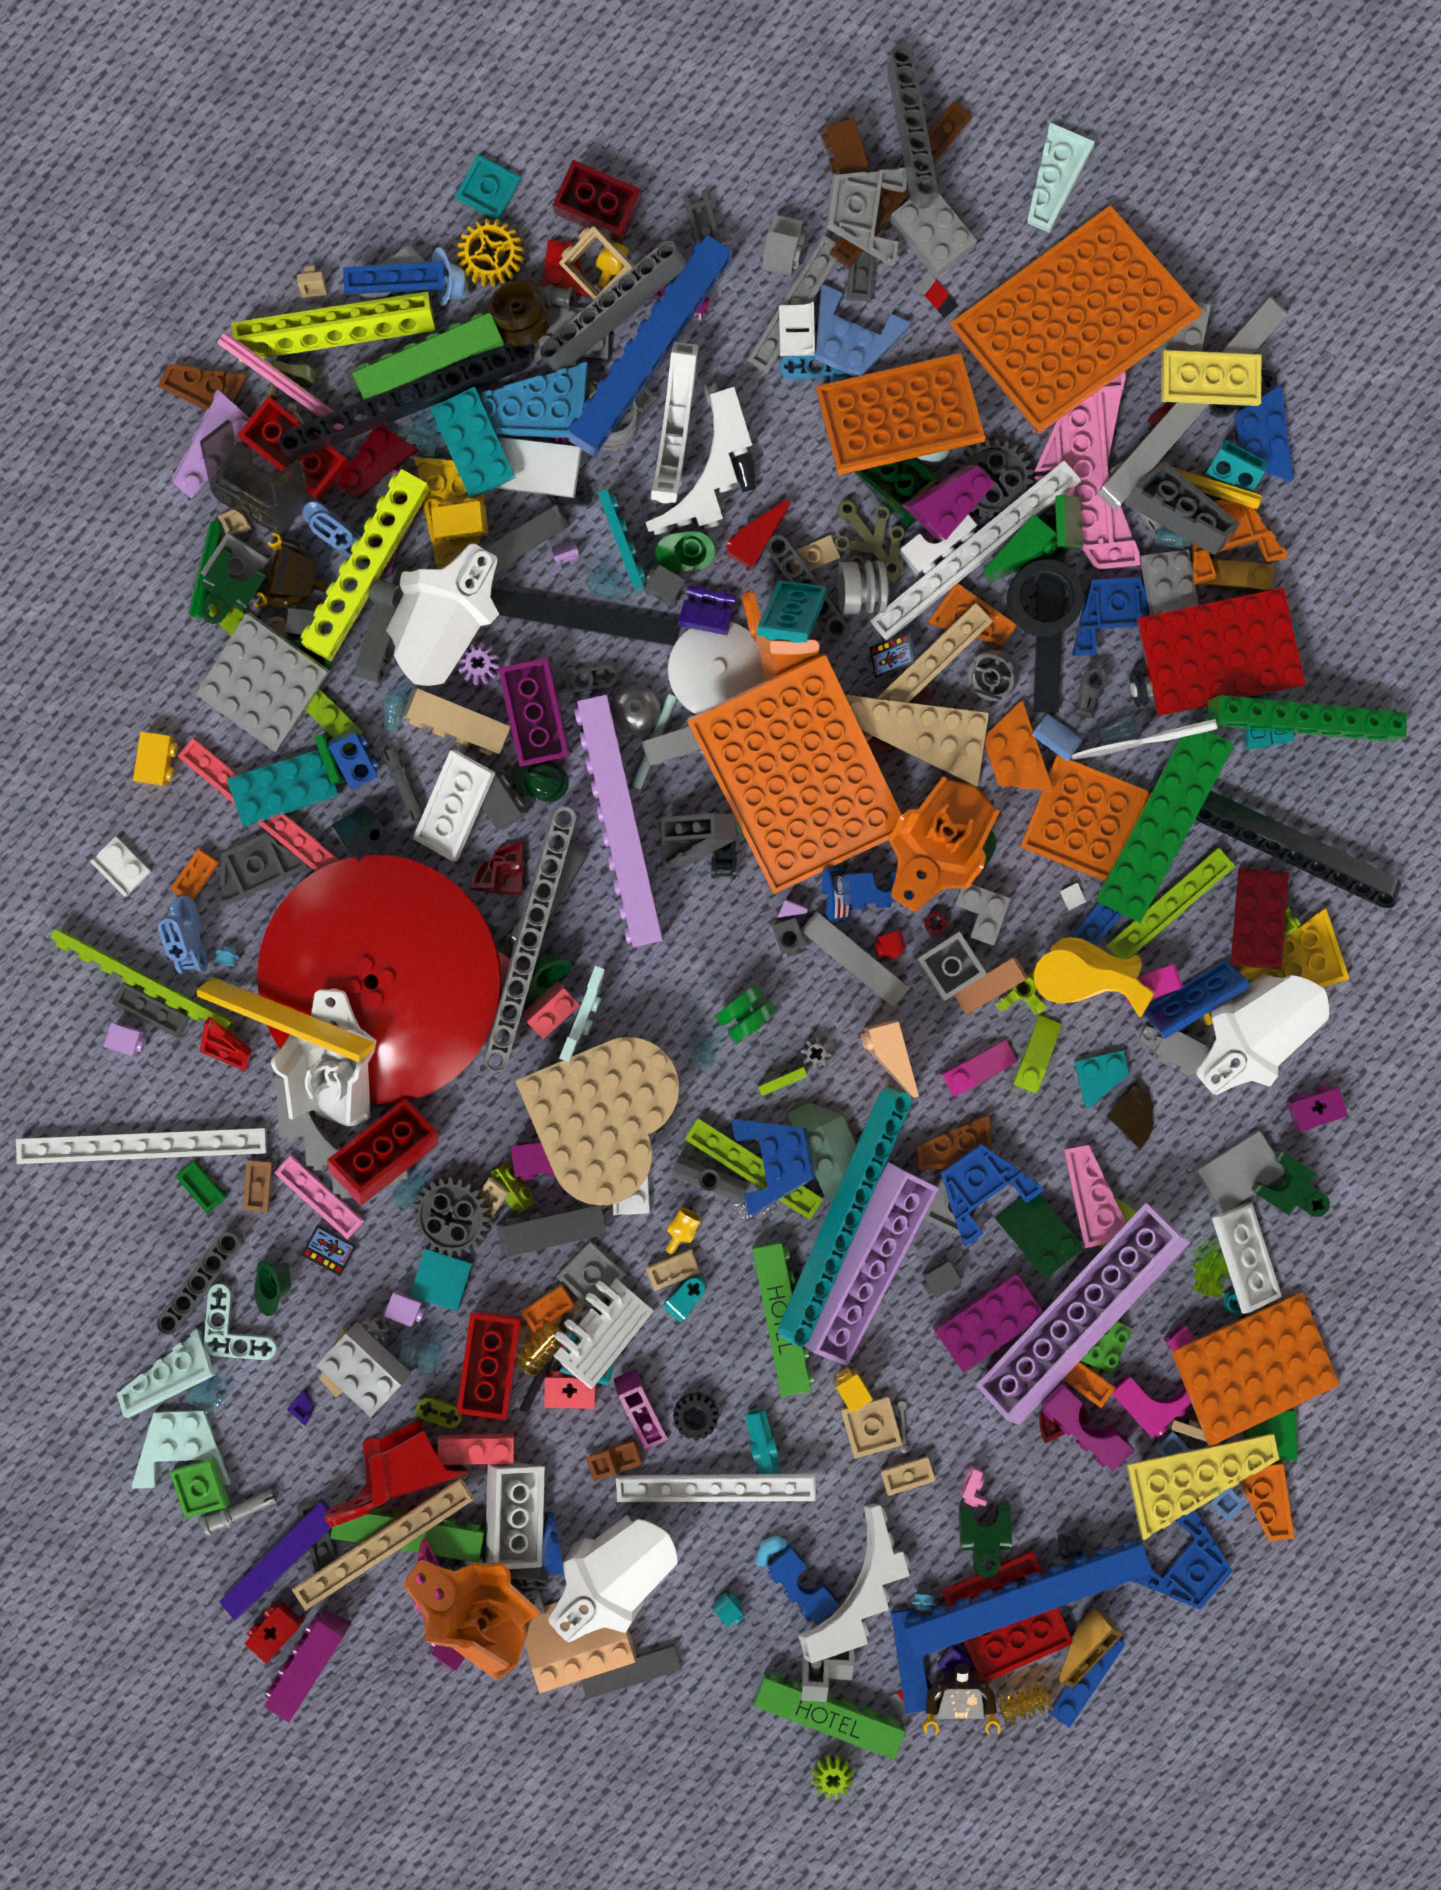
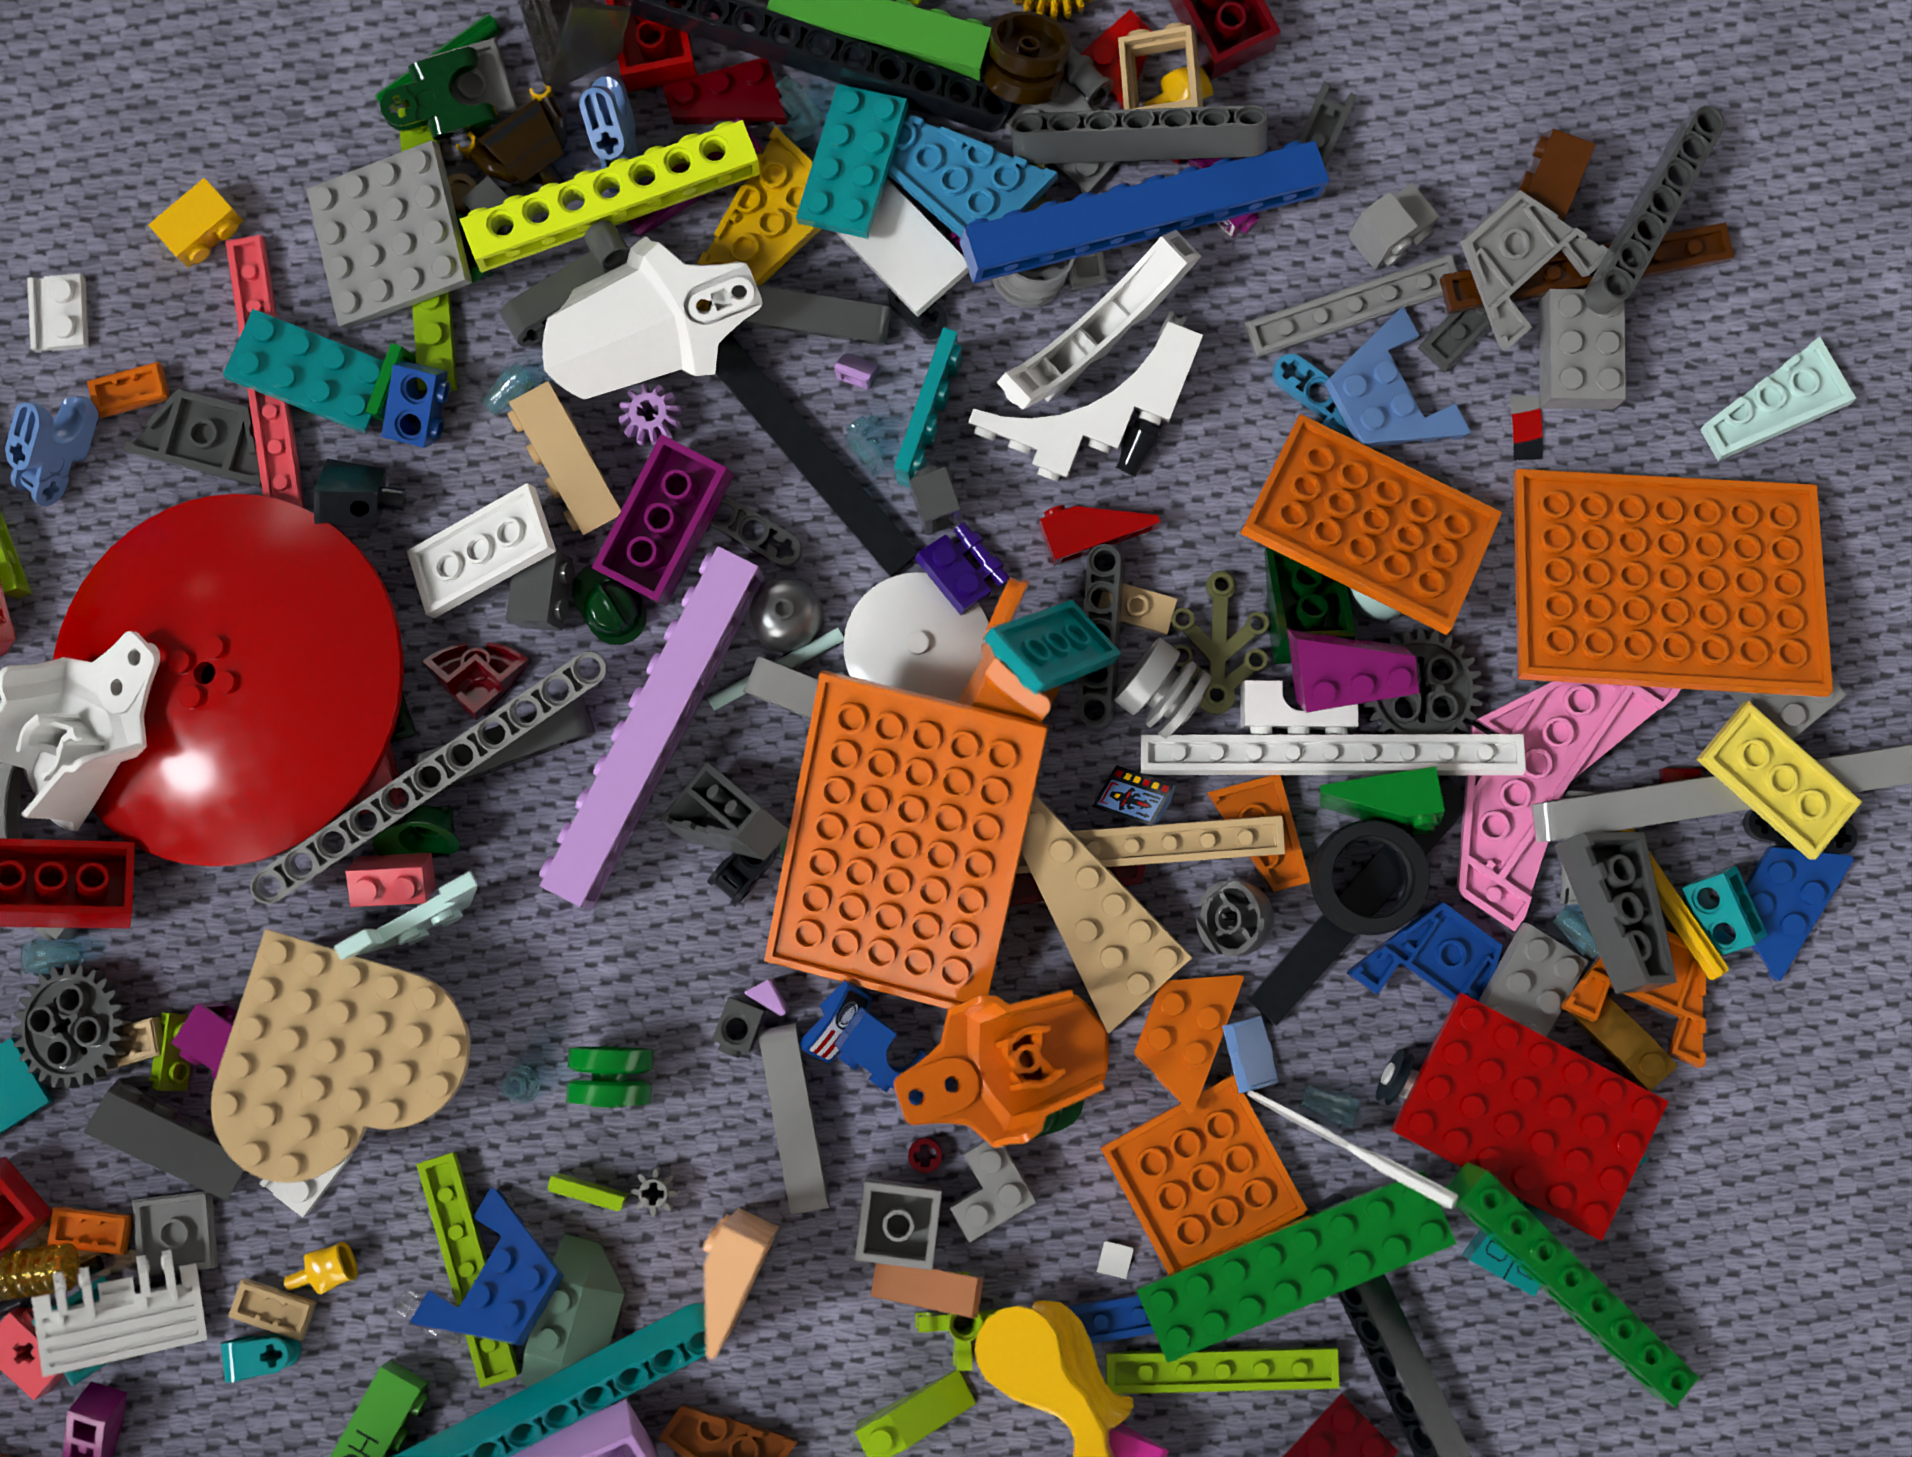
camera: 40 degrees right, 5 degrees down
(226, 956) = (84, 510): medium azure plate -> none
(234, 522) = (513, 38): tan tile -> none
(286, 1019) = (72, 637): yellow tile -> none
(399, 774) = (452, 473): dark grey pin -> none
(459, 520) = (762, 234): yellow brick -> none
(685, 551) = (991, 479): green piece -> none
(725, 1185) = (416, 1260): dark grey piece -> none
(795, 318) = (1341, 319): white piece -> none
(890, 944) = (850, 1136): red plate -> none
(978, 1068) = (831, 1373): dark pink slope -> none
(1069, 522) = (1470, 811): green tile -> none
(1089, 694) = (1331, 1034): dark grey connector -> none

